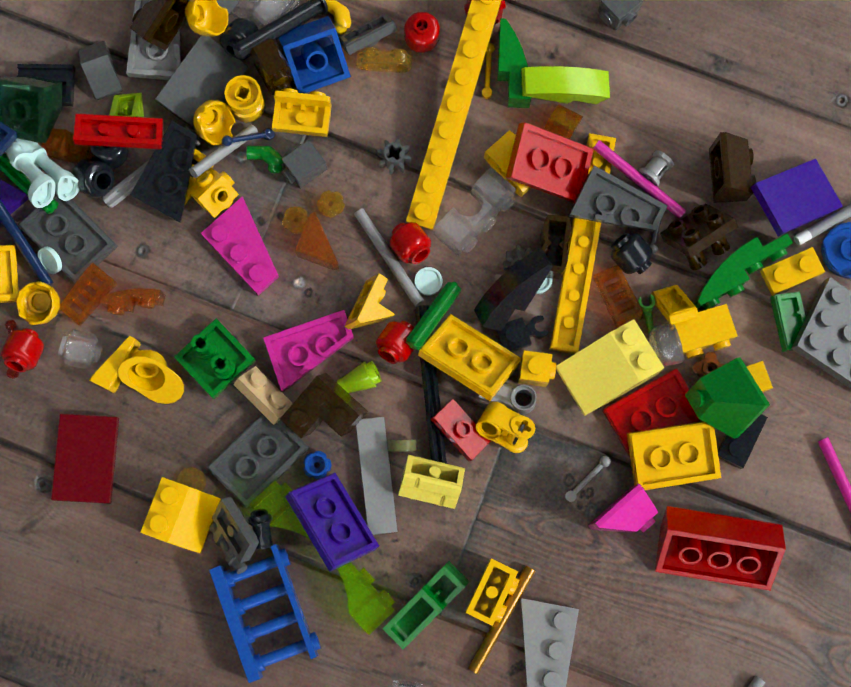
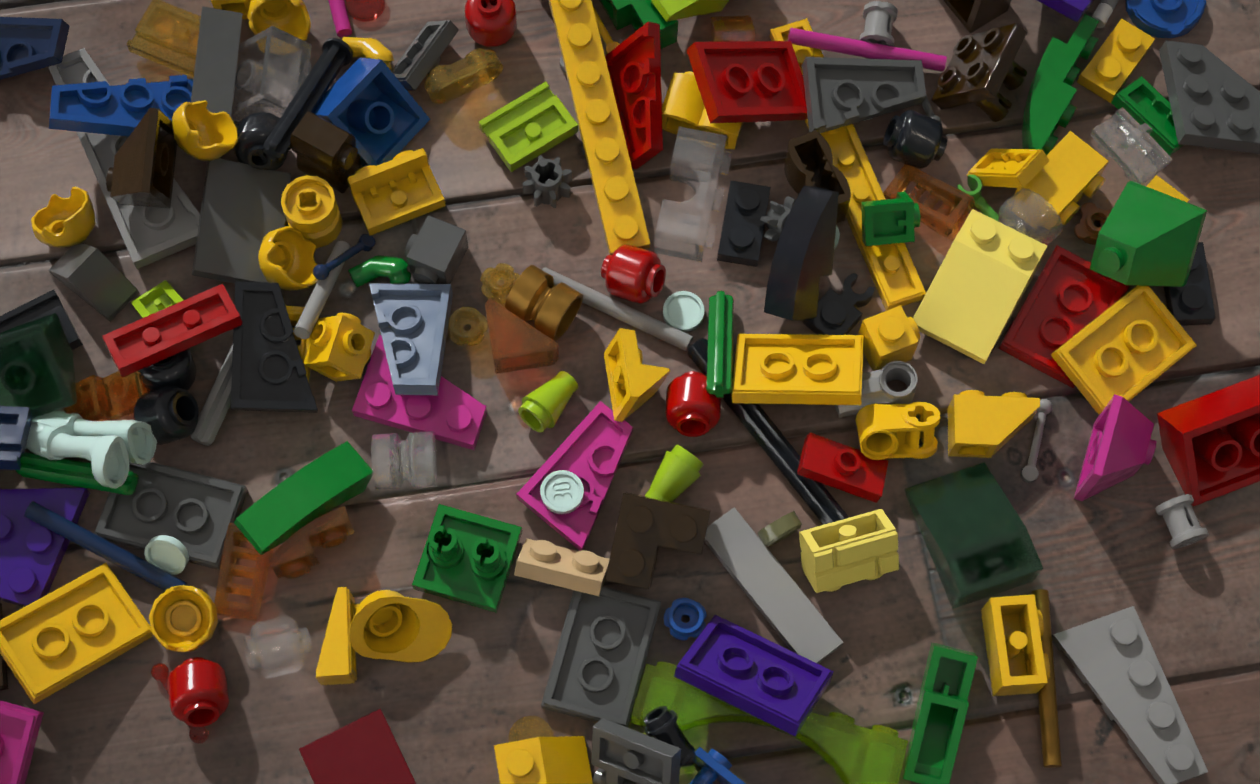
camera: 30 degrees left, 10 degrees down
(102, 24) = (65, 220): none -> yellow hair
(142, 272) = (304, 497): none -> green slope
(208, 279) = (404, 460): none -> clear wheel
(261, 207) = (413, 333): none -> sand blue wing
(289, 351) = (562, 492): none -> light aqua piece
(314, 292) = (546, 403): none -> lime cone
(348, 234) = (548, 305): none -> pearl gold wheel
(404, 114) = (528, 126): none -> lime plate
(479, 130) = (637, 90): none -> red wing
(493, 249) = (742, 224): none -> black plate
(511, 512) = (973, 535): none -> clear green slope
(561, 453) = (984, 423): none -> yellow slope
(582, 297) = (890, 220): none -> green bracket
(640, 577) = (1181, 521): none -> light grey bush
(761, 333) = (1131, 146): none -> clear hips

